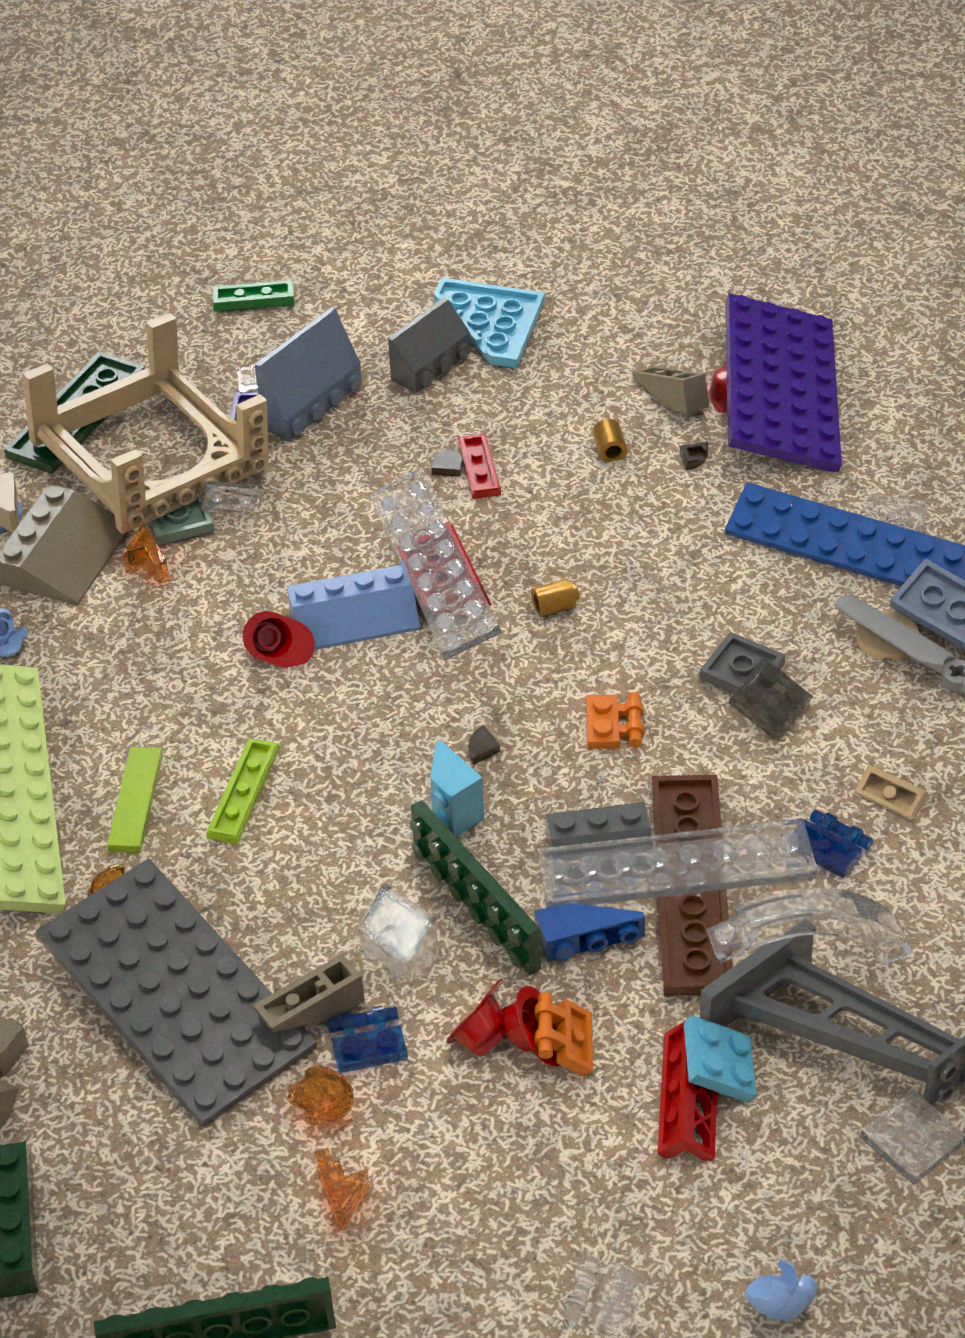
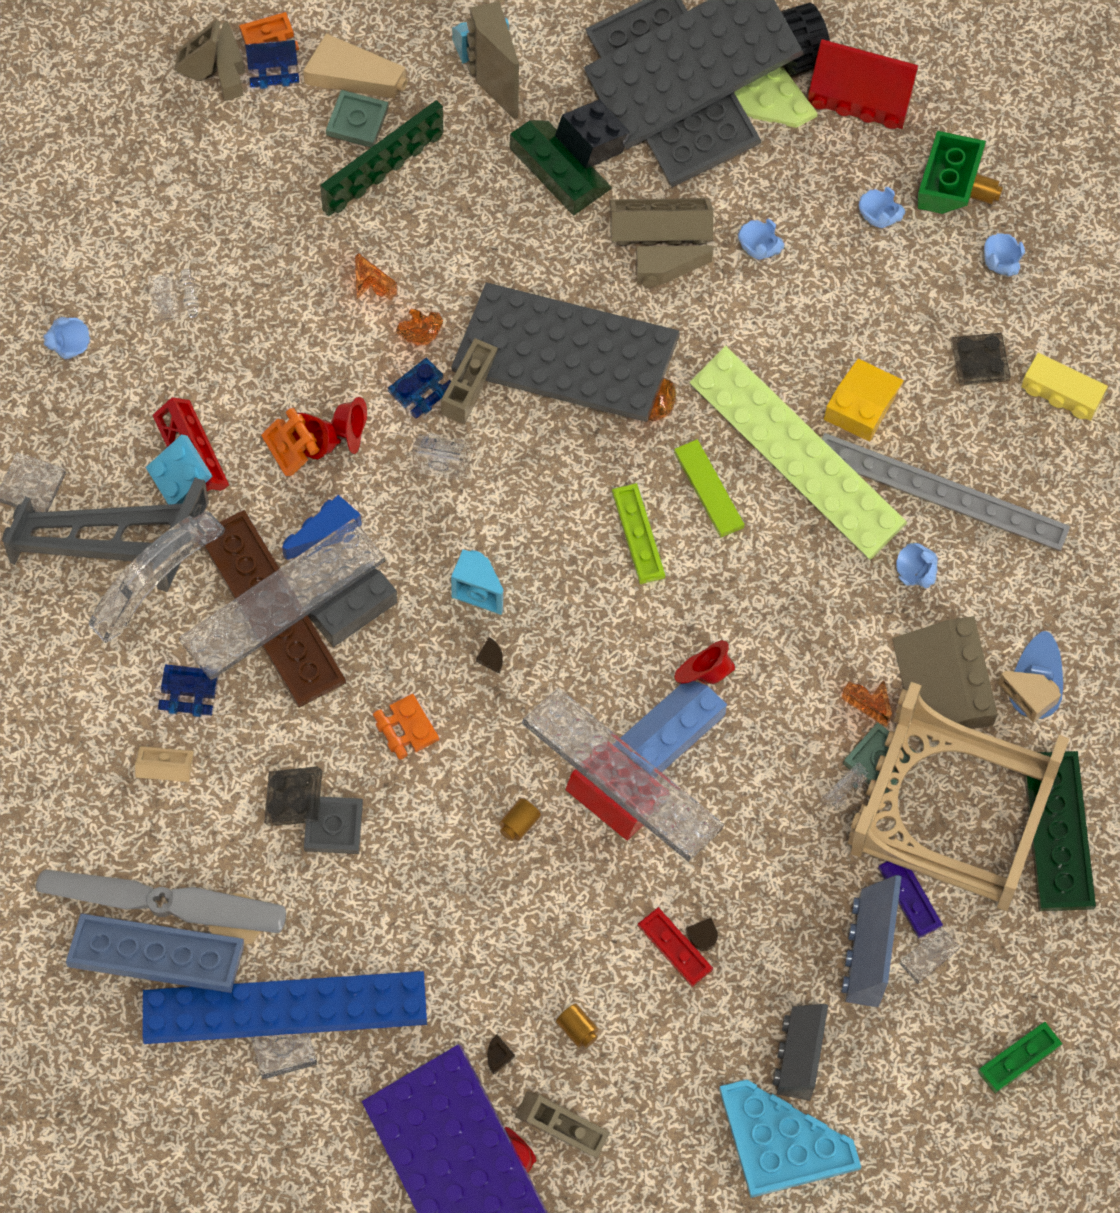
camera: 145 degrees right, 20 degrees up
(475, 886) = (412, 512): dark green plate -> none

